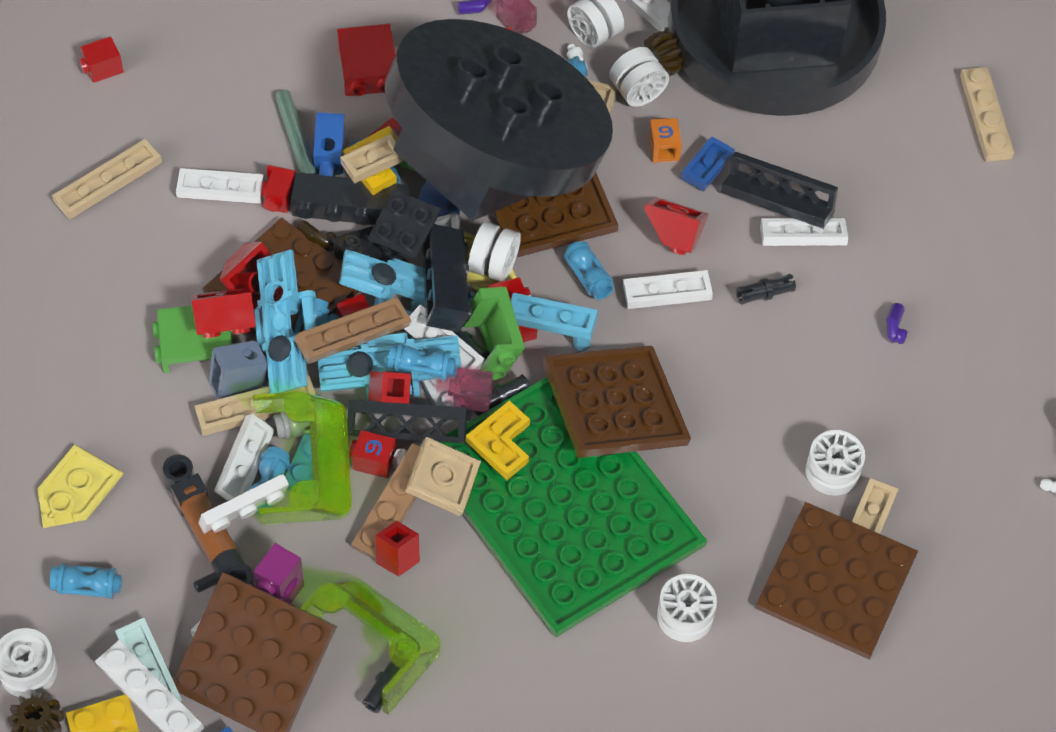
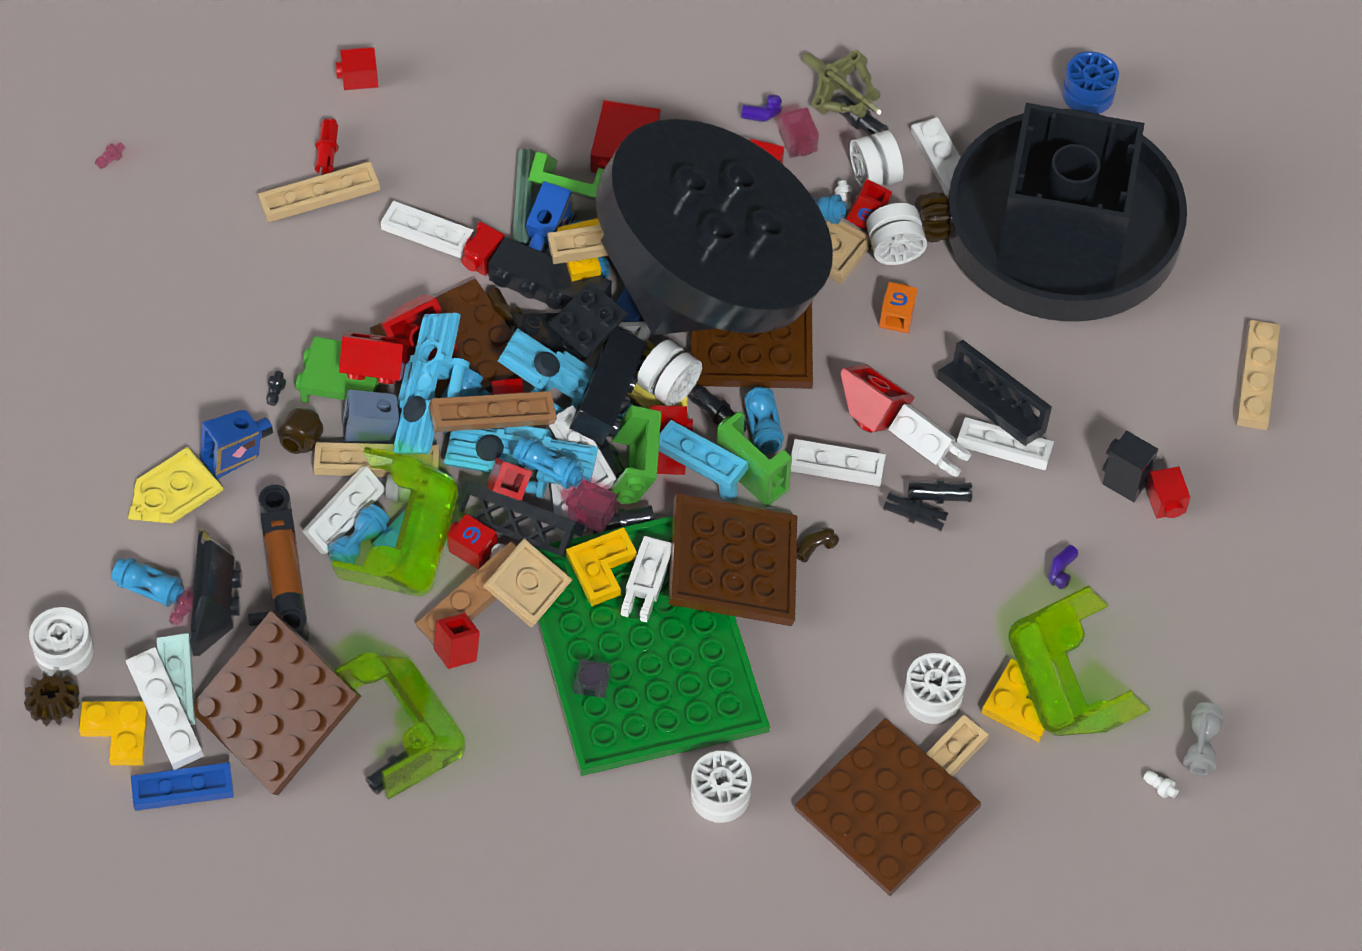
camera: 20 degrees right, 0 degrees up
(98, 137) = (326, 146): none -> red axle
(116, 427) = (231, 441): none -> blue torso
(127, 593) = (184, 606): none -> clear pink piece
(135, 365) = (276, 384): none -> black piece
(152, 571) = (213, 594): none -> black wedge
(176, 399) = (300, 430): none -> dark brown head
(244, 504) = (321, 552): white plate -> none
(280, 573) = (330, 632): magenta brick -> none
(351, 111) = (544, 170): none -> bright green panel
(534, 545) = (592, 678): none -> plate
(546, 437) = (647, 576): none -> white hinge
(547, 274) = (714, 407): none -> black pin
(602, 57) = (869, 198): none -> red brick
(614, 317) = (764, 477): none -> bright green panel
(676, 361) = (813, 540): none -> dark brown arm
(707, 163) = (933, 344): blue plate -> none
(737, 246) = (928, 439): none -> white hinge
(752, 312) = (915, 511): none -> black pin
(905, 460) = (1011, 705): none -> yellow plate
(909, 397) = (1041, 652): none -> clear neon green windscreen
(919, 220) = (1129, 465): none -> black brick
(957, 234) = (1168, 492): none -> red brick

